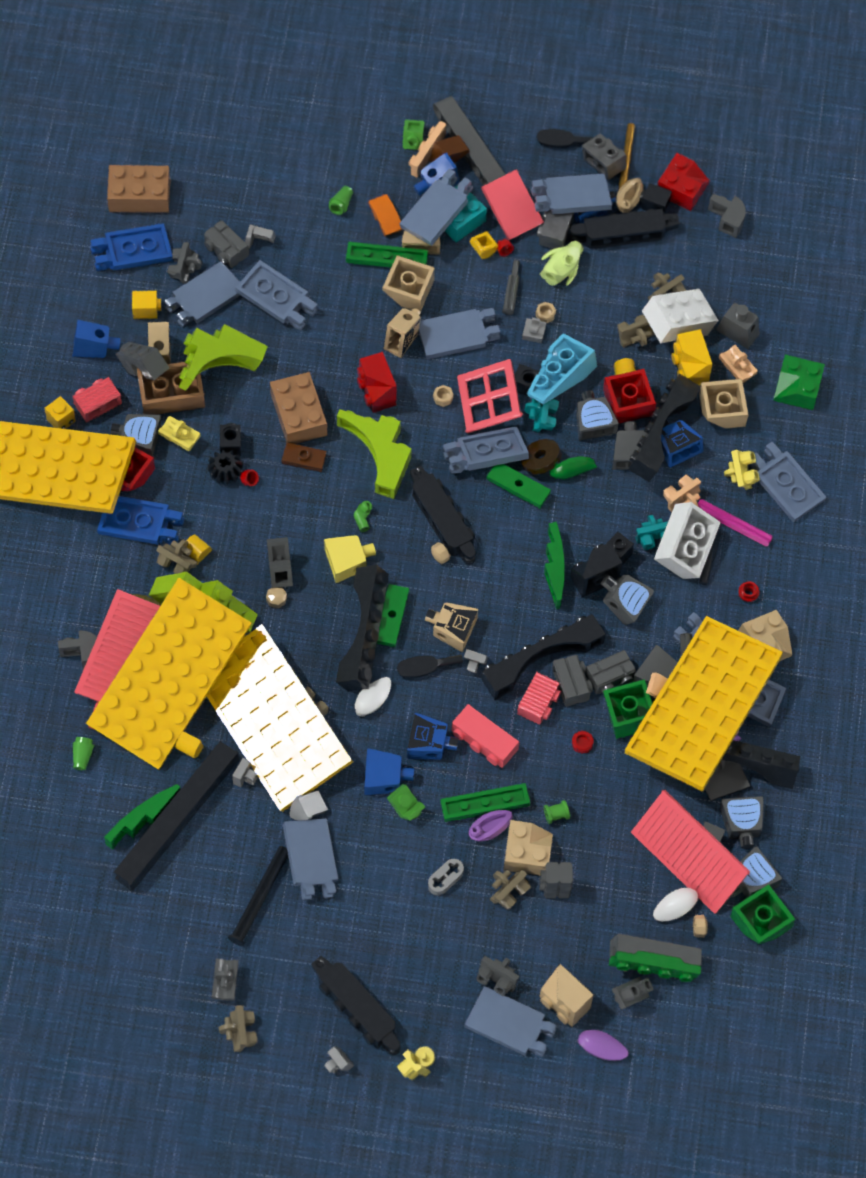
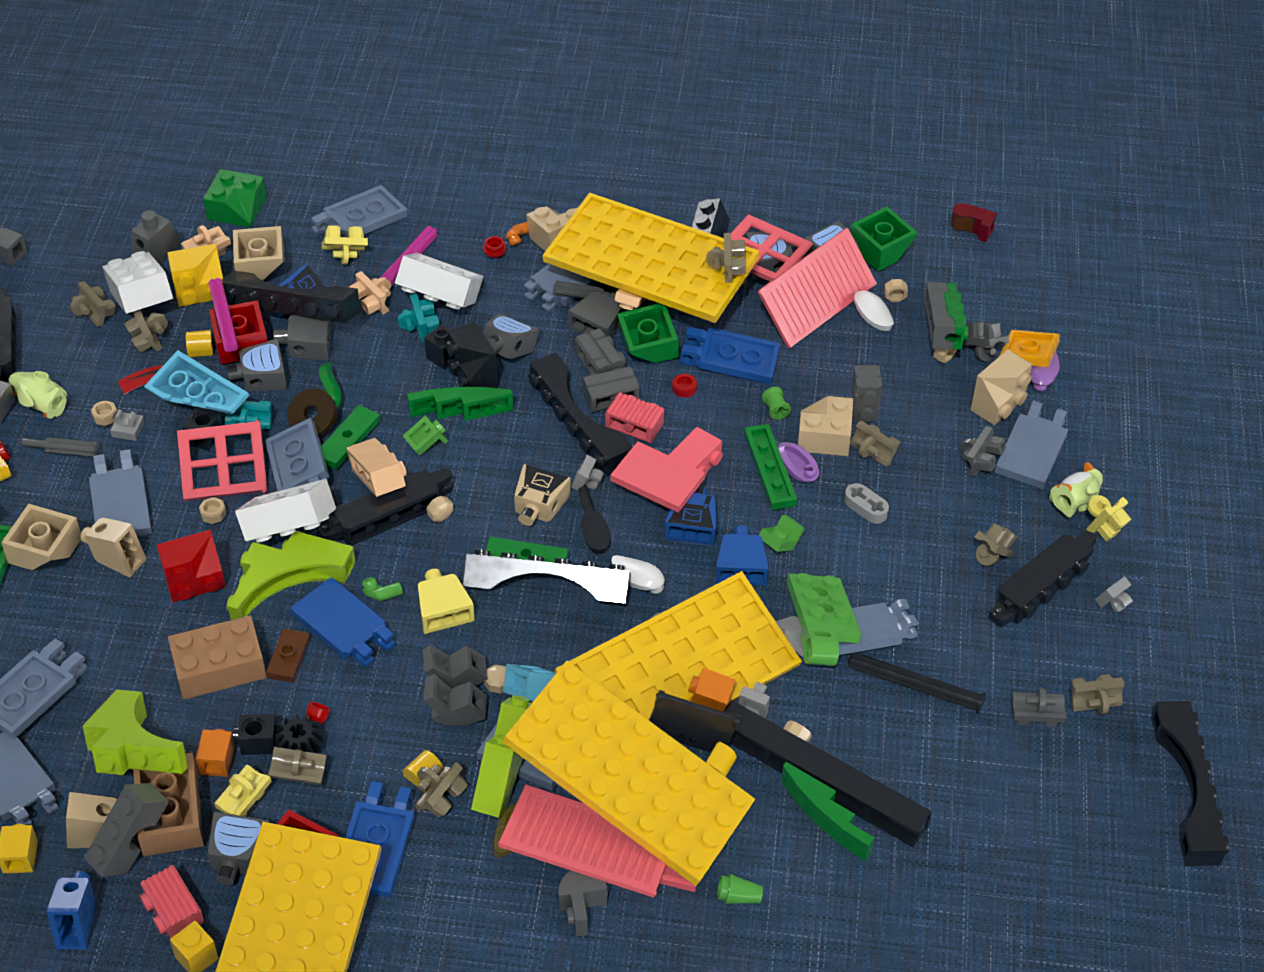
camera: 90 degrees left, 15 degrees down
(104, 1084) = (1177, 732): none -> black arch
(197, 465) = (297, 766): none -> dark tan hips
(212, 801) = (798, 730): none -> tan tile
(215, 721) = (693, 721): none -> black door
(216, 414) = (215, 753): none -> orange brick
(244, 736) = (711, 689): none -> orange brick
(249, 563) = (455, 705): none -> dark grey brick
(259, 611) = (526, 680): none -> medium azure brick
(301, 821) = (823, 615): none -> bright green hinge
(333, 491) = (343, 622): none -> blue tile
(390, 969) = (997, 543): none -> dark tan hips
(422, 438) = (286, 510): none -> white brick
(450, 1047) = (1077, 490): none -> yellowish green animal
(459, 706) = (658, 476): none -> coral tile
(474, 501) = (376, 466): none -> light nougat brick
(520, 541) = (425, 434): none -> bright green bracket
(589, 336) = (138, 378): none -> red sticker
(616, 785) = (730, 354): none -> blue tile
(623, 1033) = (1033, 347): none -> light orange tile
(633, 377) = (223, 315): none -> dark pink axle
(685, 755) = (719, 258): none -> dark tan hips
(737, 808) = (765, 248): none -> coral window
(766, 606) = (516, 231): none -> orange arm
(802, 1004) = (973, 220): none -> dark red leg

